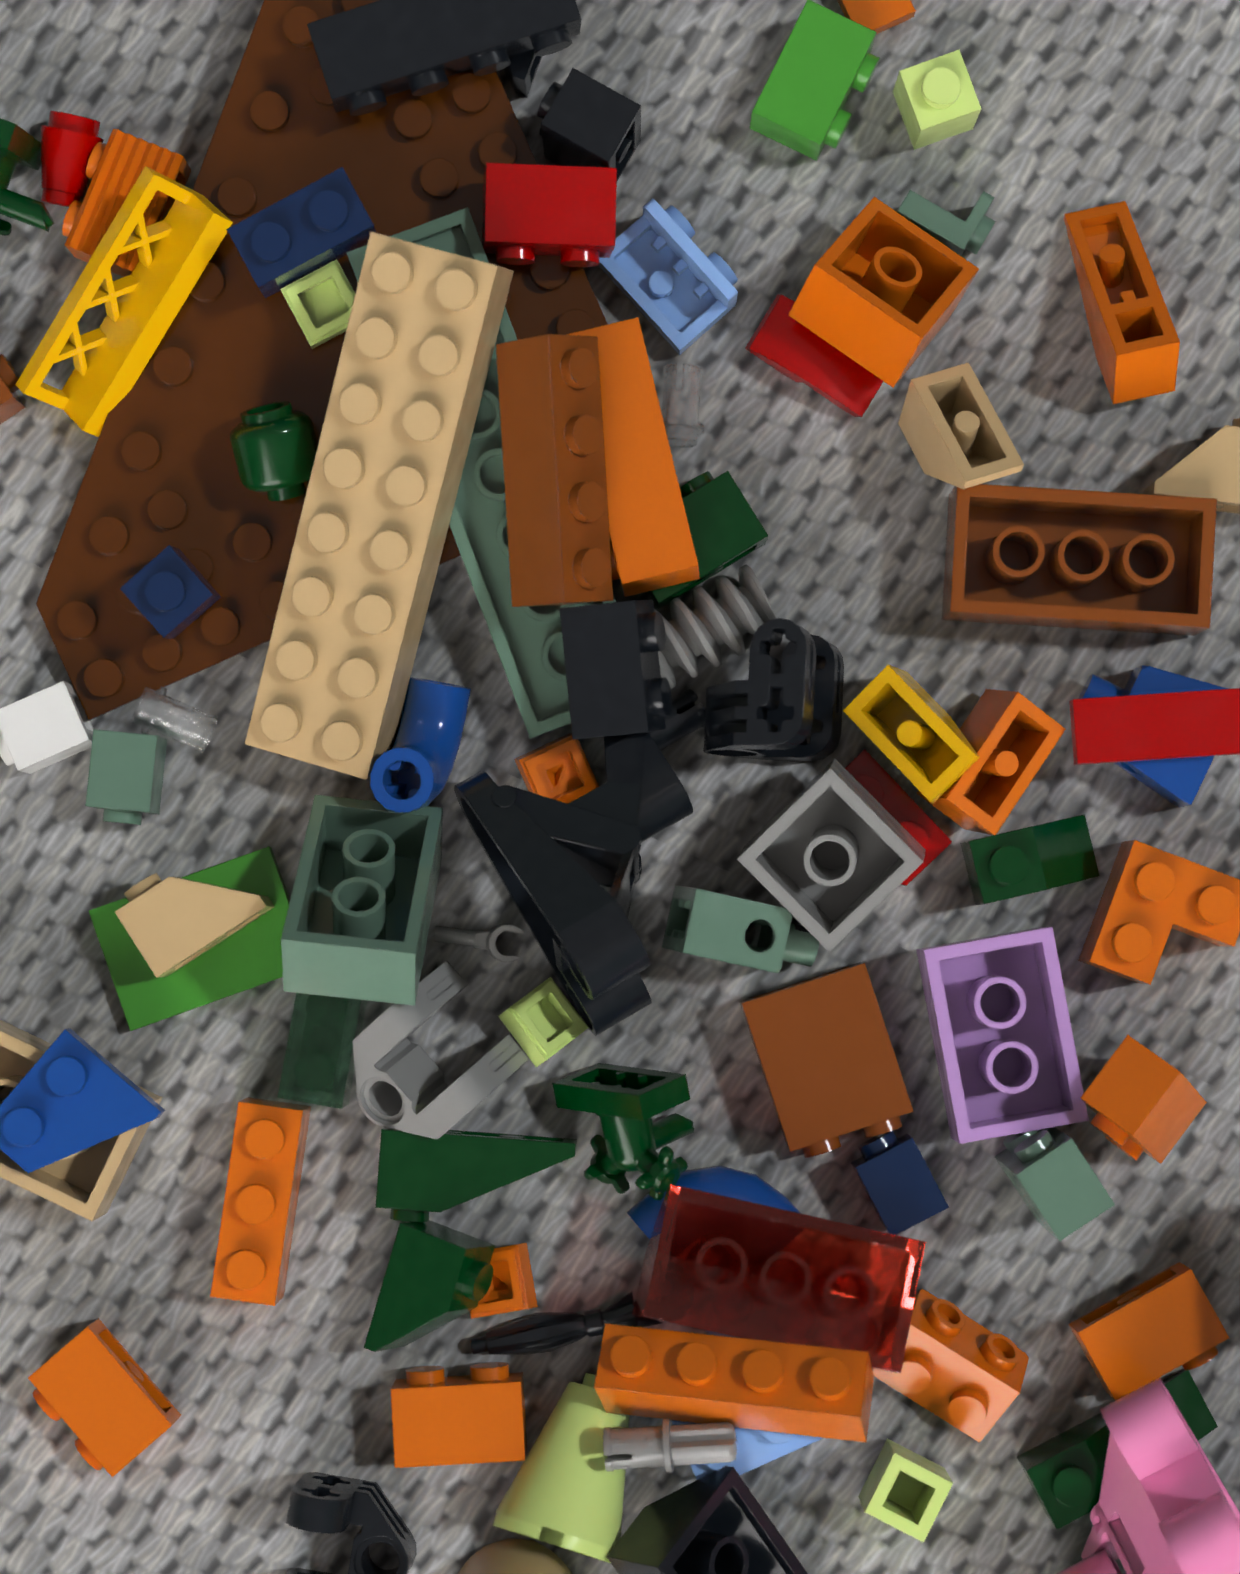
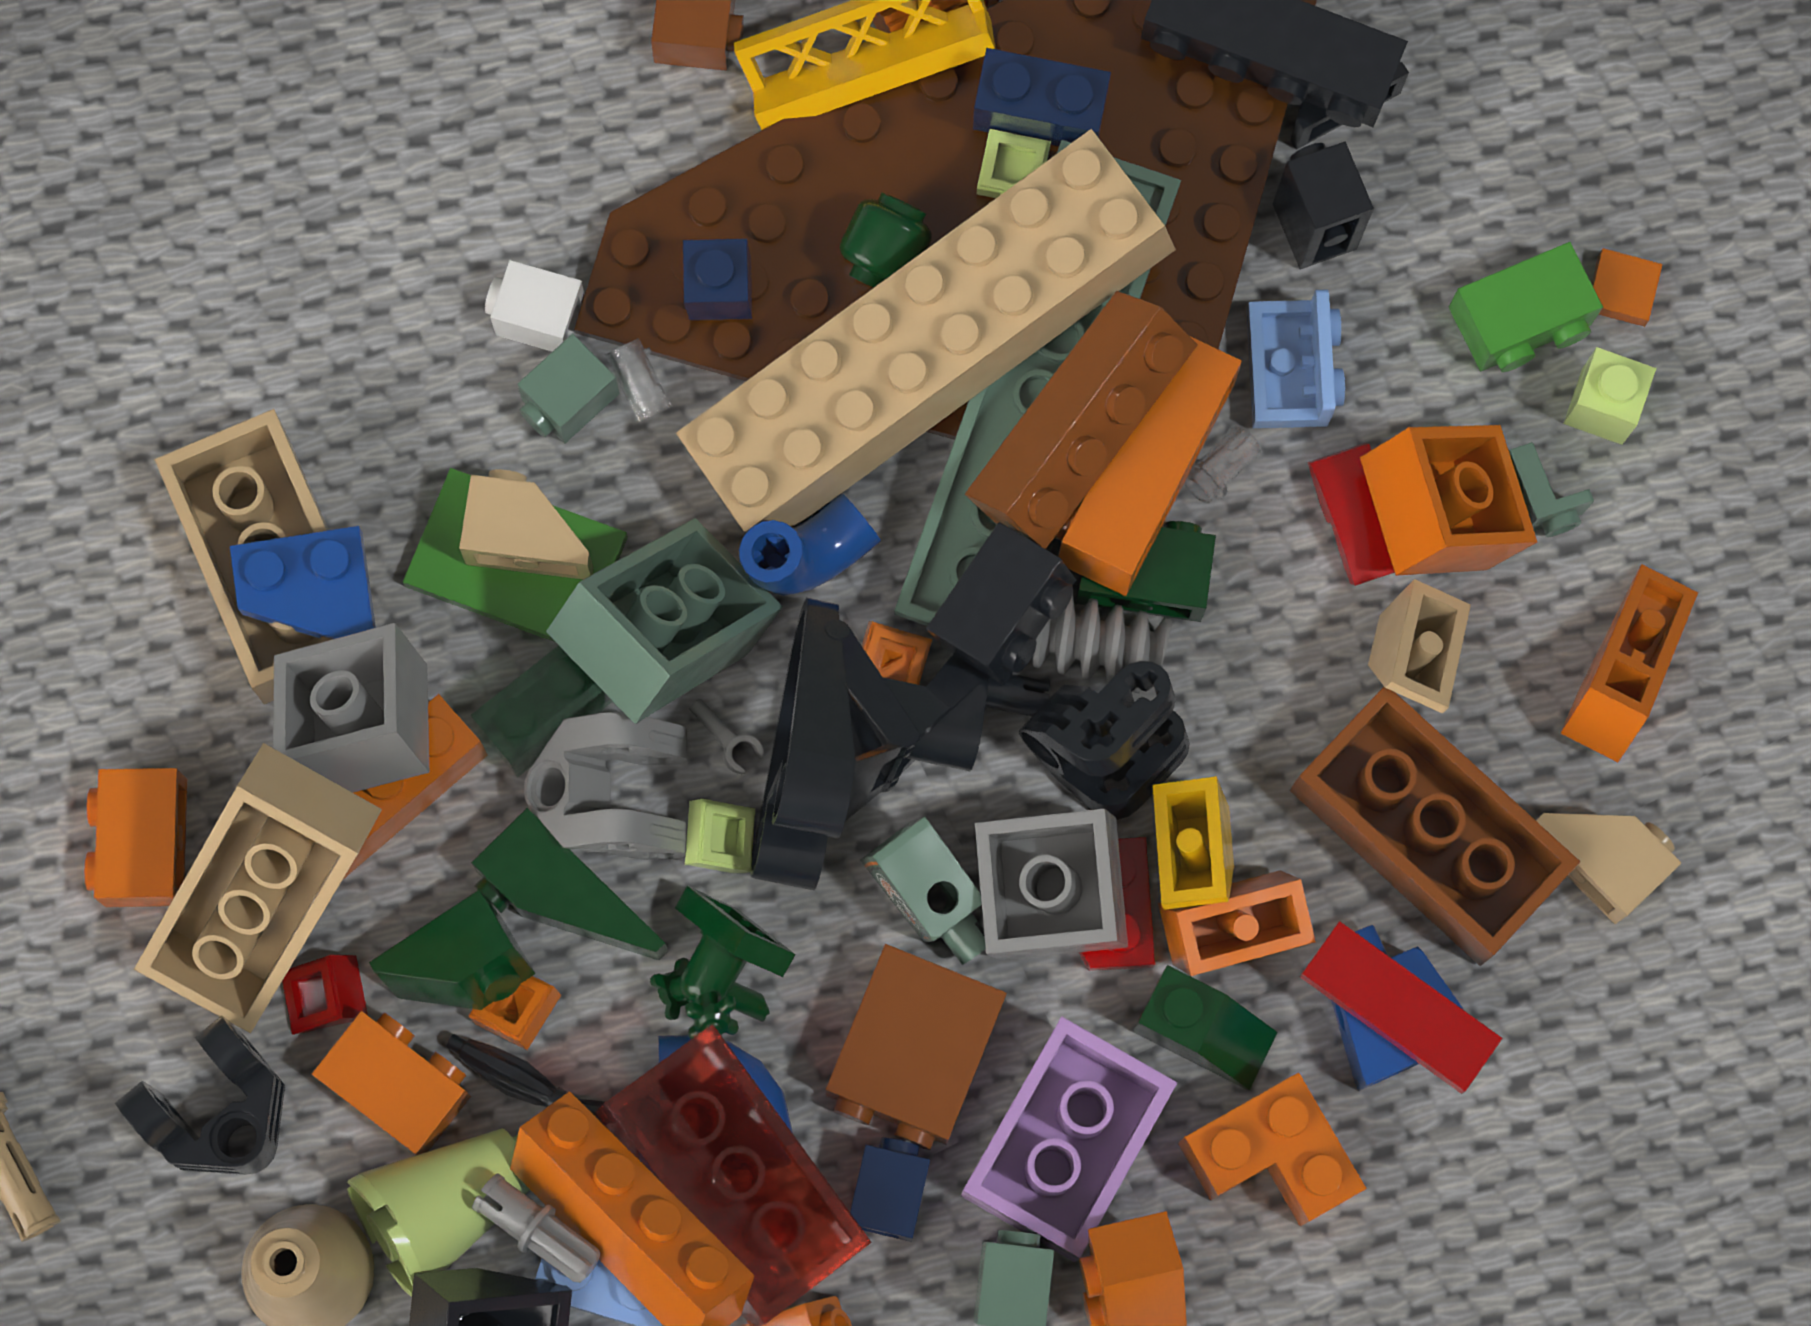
camera: 30 degrees right, 10 degrees down
(188, 1182) = (354, 708): none -> light grey brick
(236, 1373) = (257, 888): none -> tan brick
(346, 1391) = (324, 993): none -> red slope
(549, 213) = (1238, 233): red brick -> none

